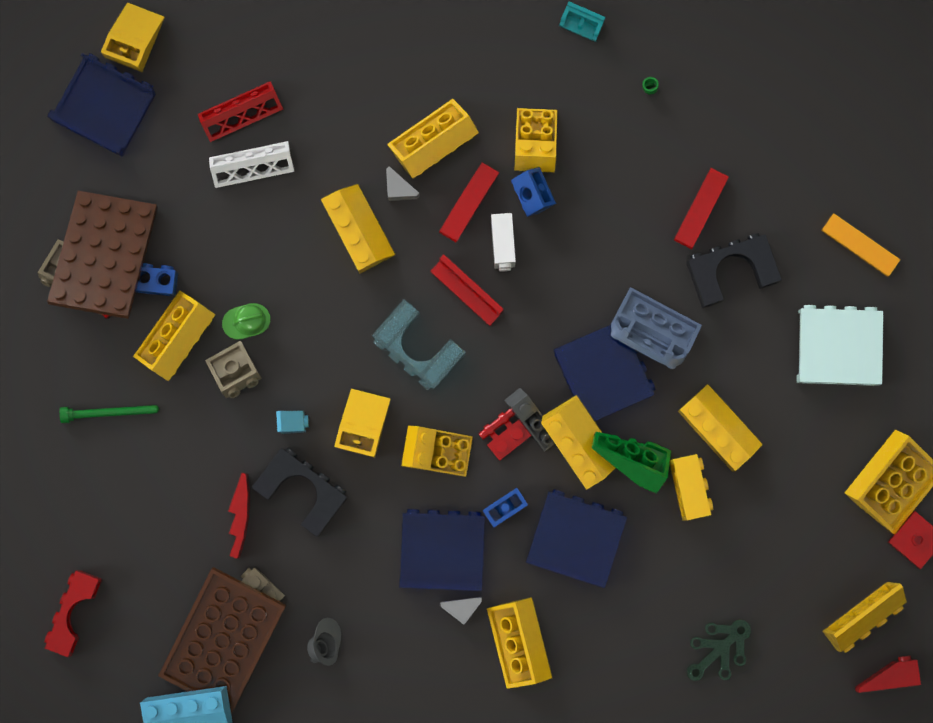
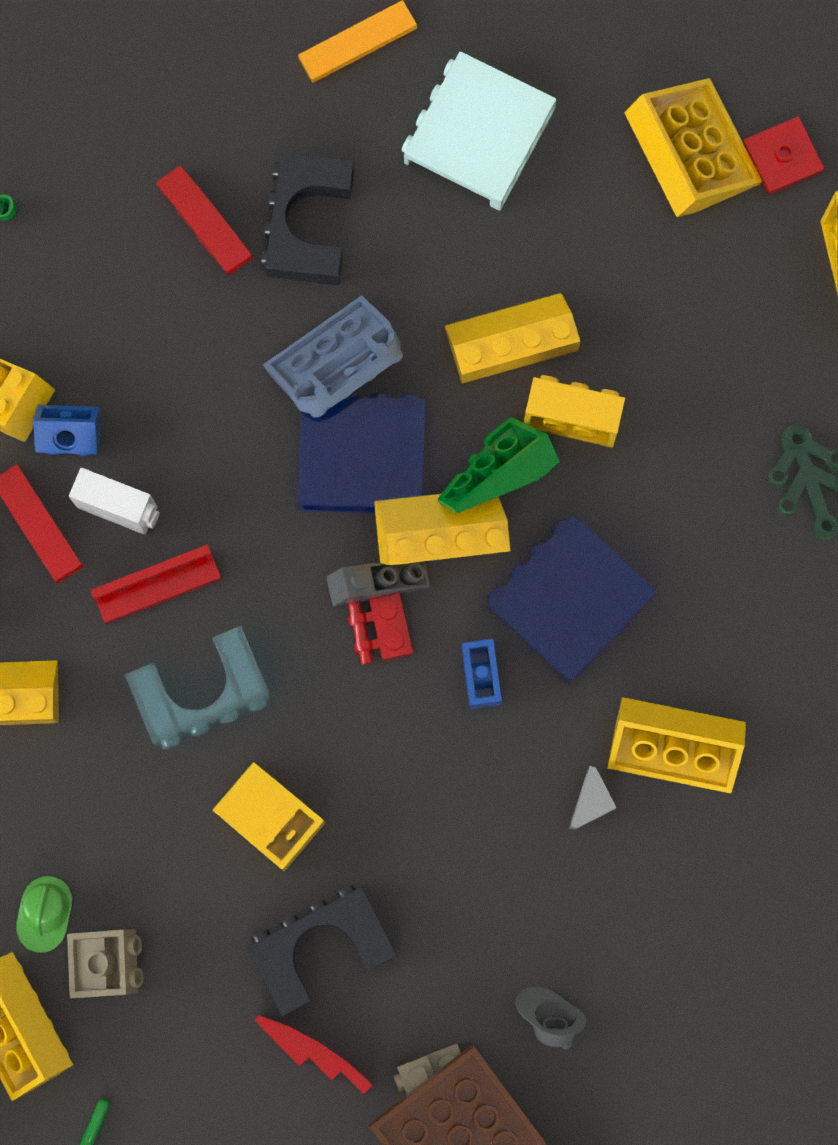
camera: 65 degrees left, 5 degrees down
(292, 421) = (218, 914): medium azure slope -> none
(437, 451) = (357, 732): yellow slope -> none
(442, 550) = (498, 791): clear blue panel -> none

